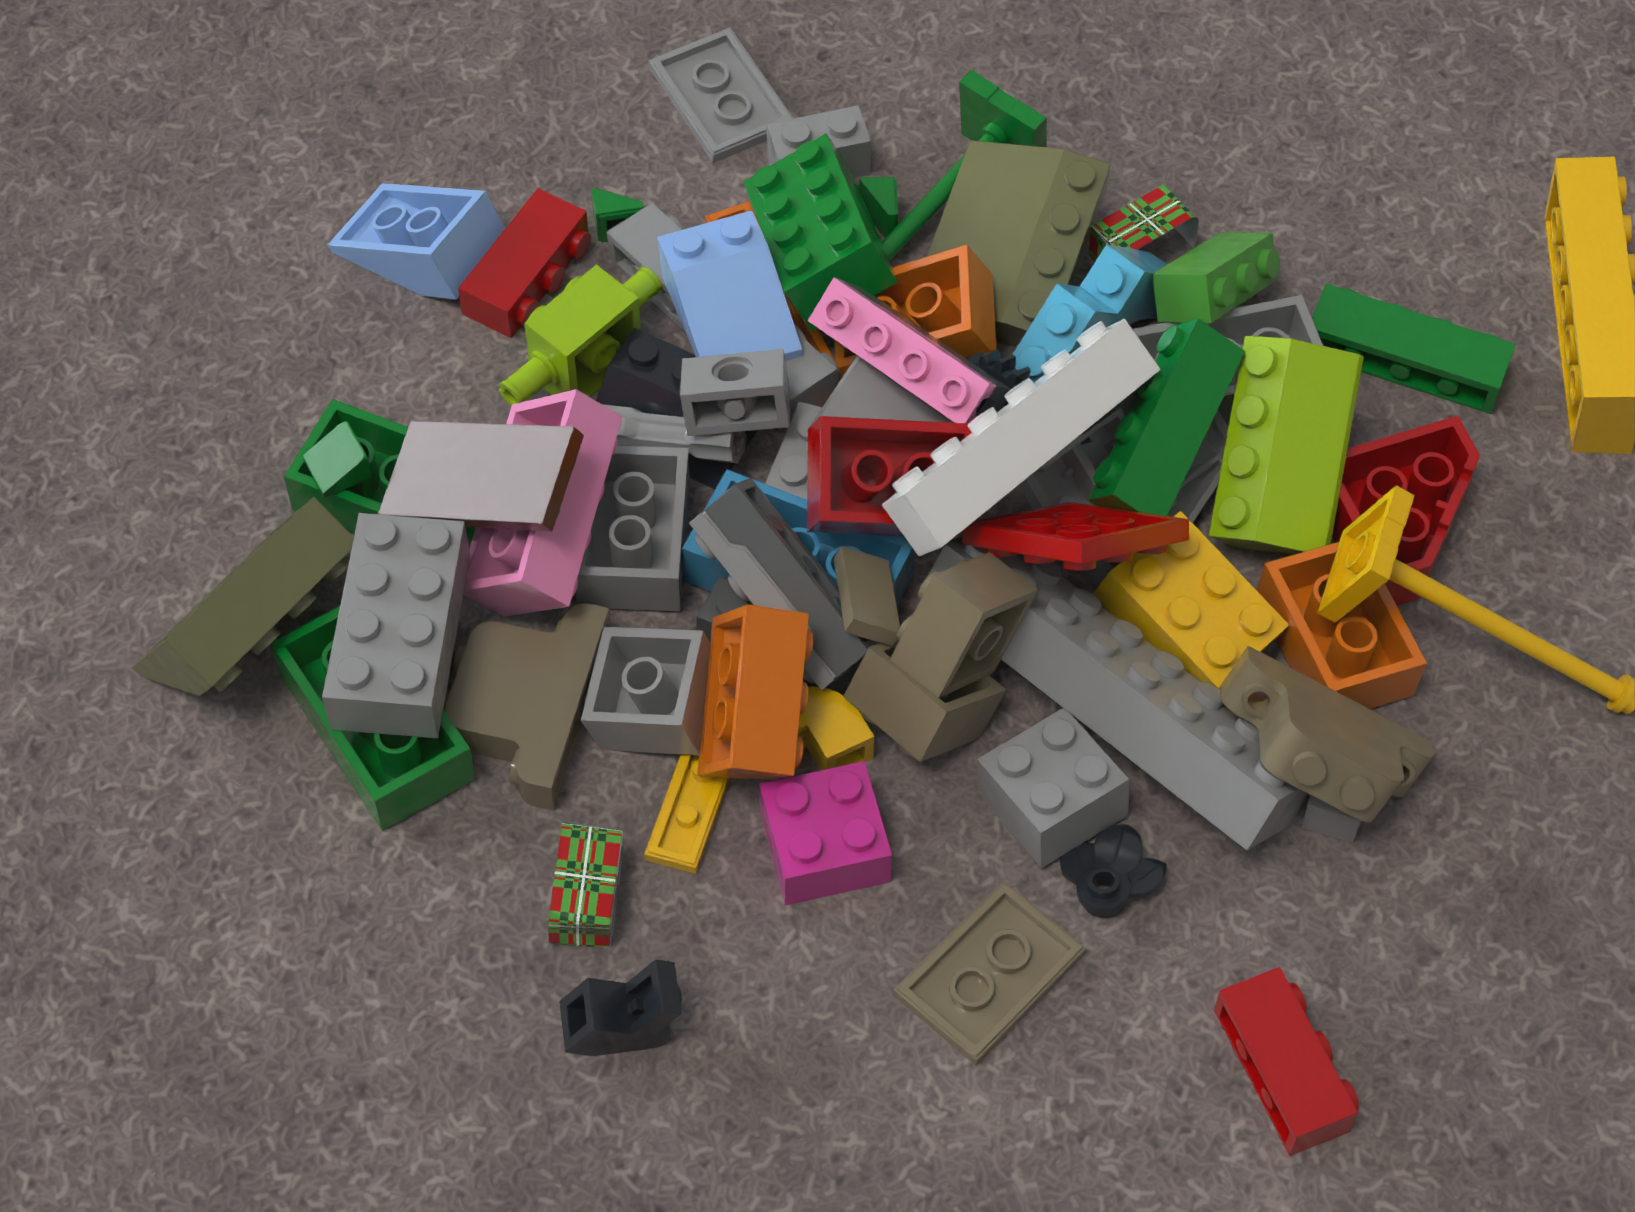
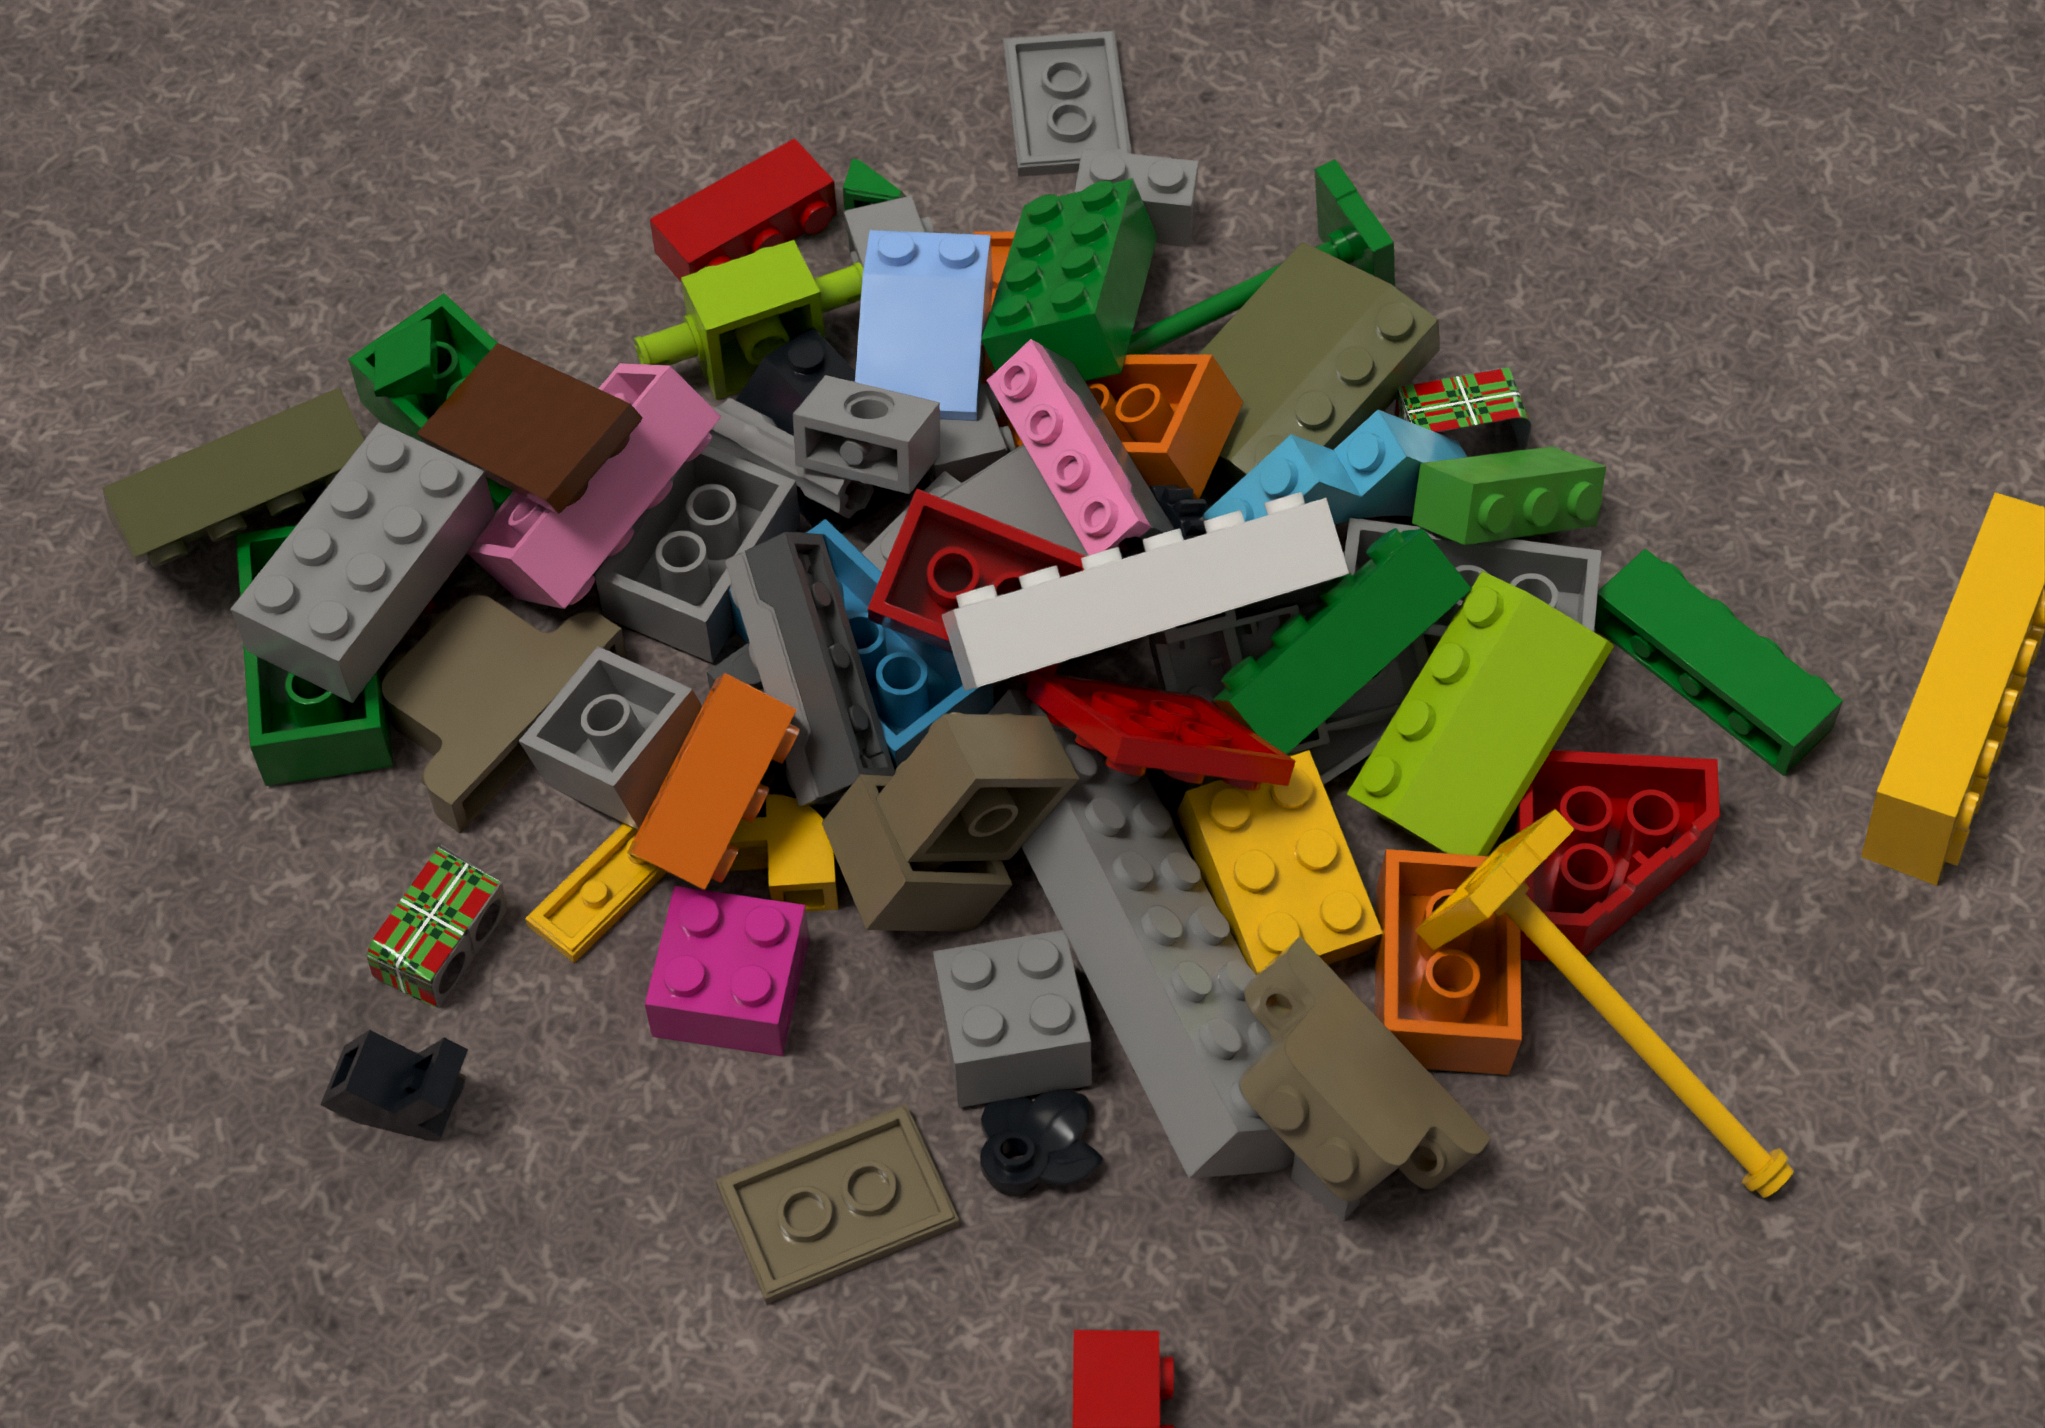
camera: 25 degrees right, 0 degrees up
(421, 236) = (648, 150): light blue slope -> none
(866, 596) = (890, 715): dark tan tile -> none
(881, 202) = (1177, 279): green slope -> none

